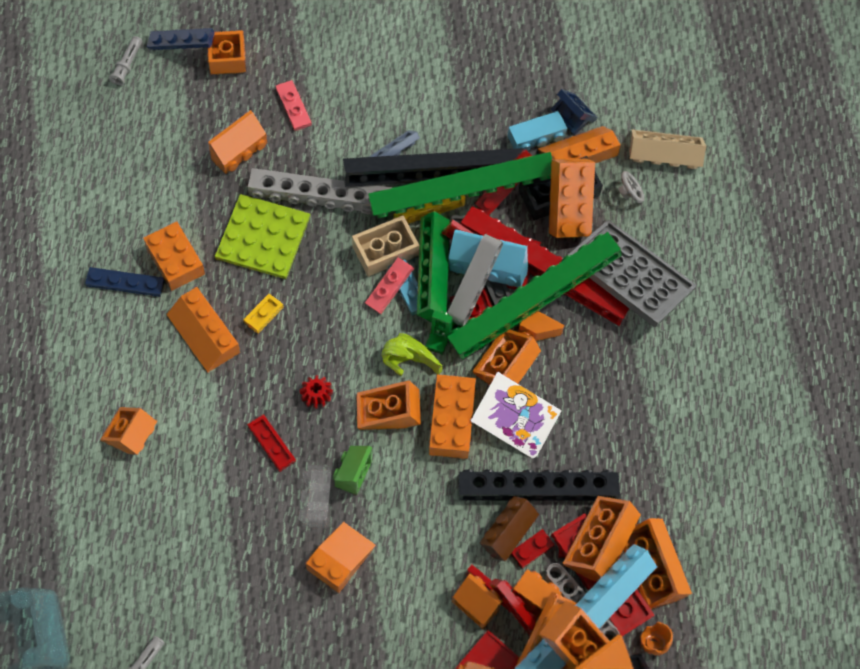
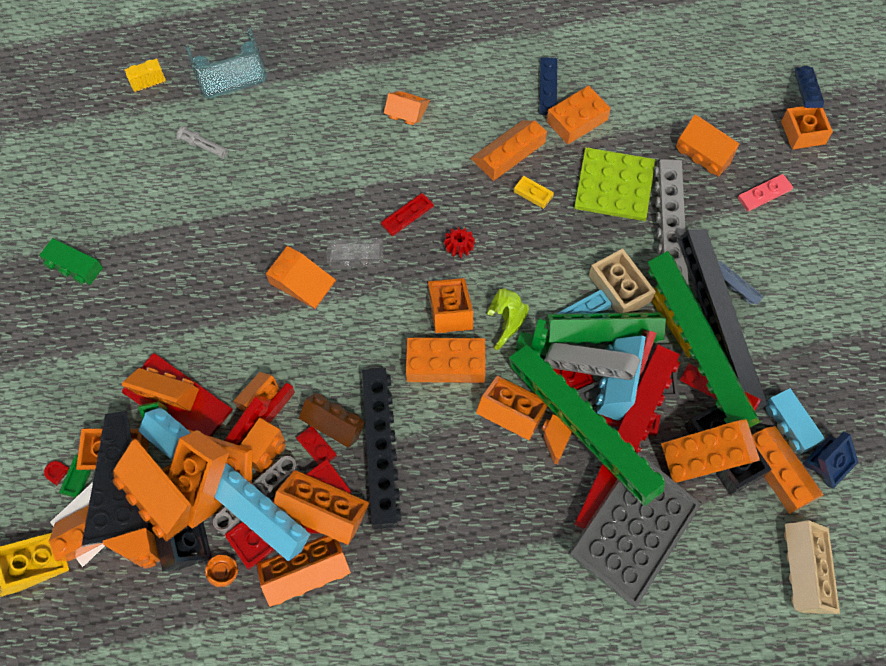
camera: 90 degrees right, 0 degrees up
(124, 66) = (768, 52): light grey pin -> none
(353, 468) = (382, 279): bright green slope -> none
(389, 285) = (579, 292): coral plate -> none
(516, 415) = (451, 417): sticker -> none
(630, 187) = (744, 524): light grey piece -> none

